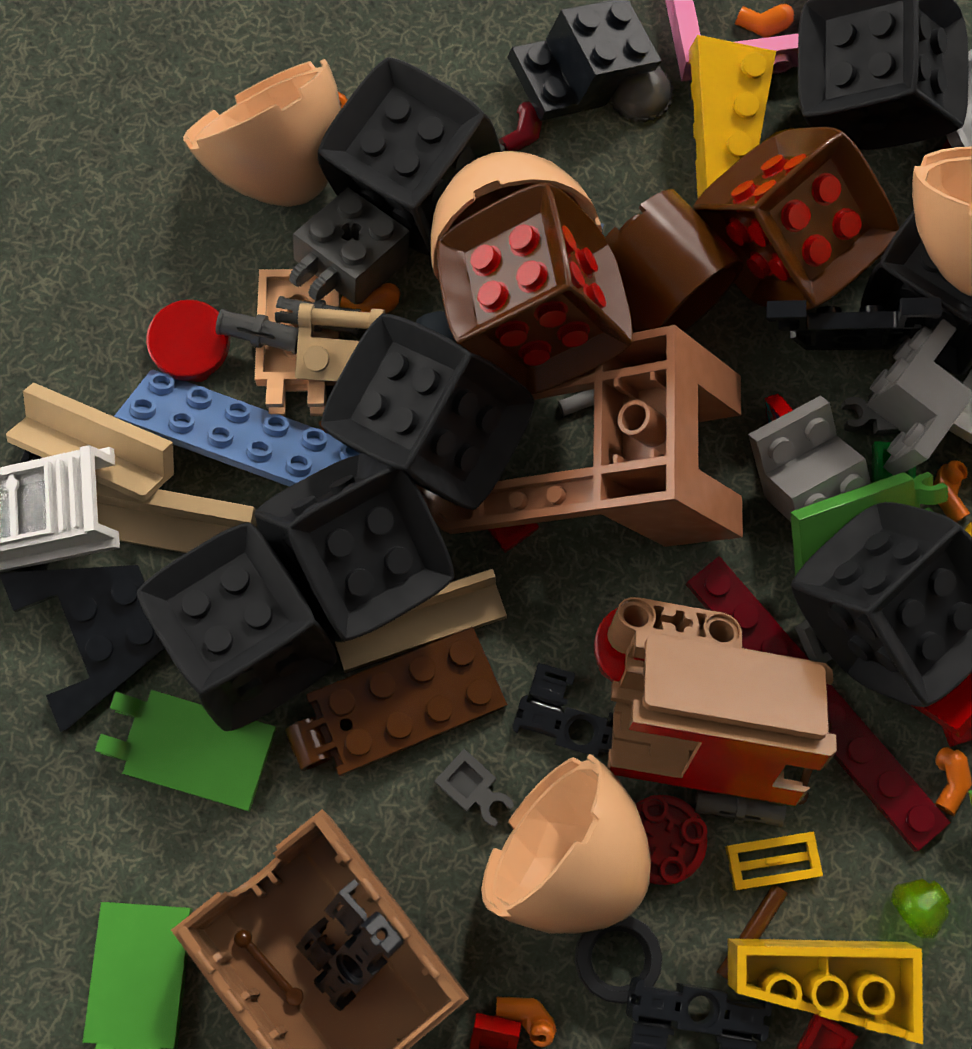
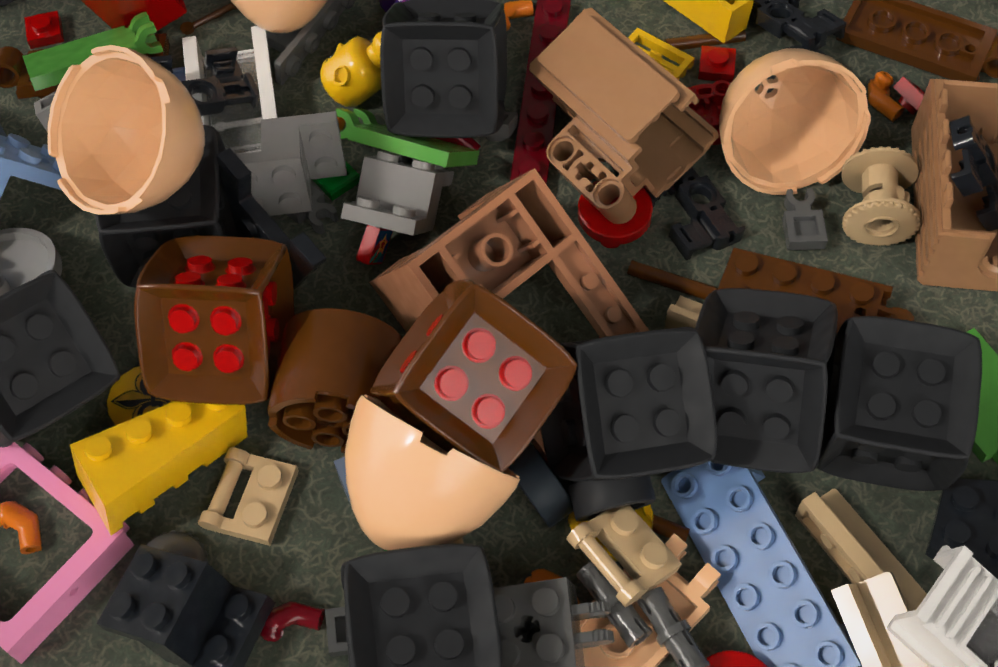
camera: 130 degrees left, 15 degrees down
(417, 864) = (885, 211): none -> tan hose
(528, 628) = (670, 280): none -> reddish brown piece
(631, 176) = (261, 501): none -> tan plate
(711, 908) = (717, 63): none -> red plate

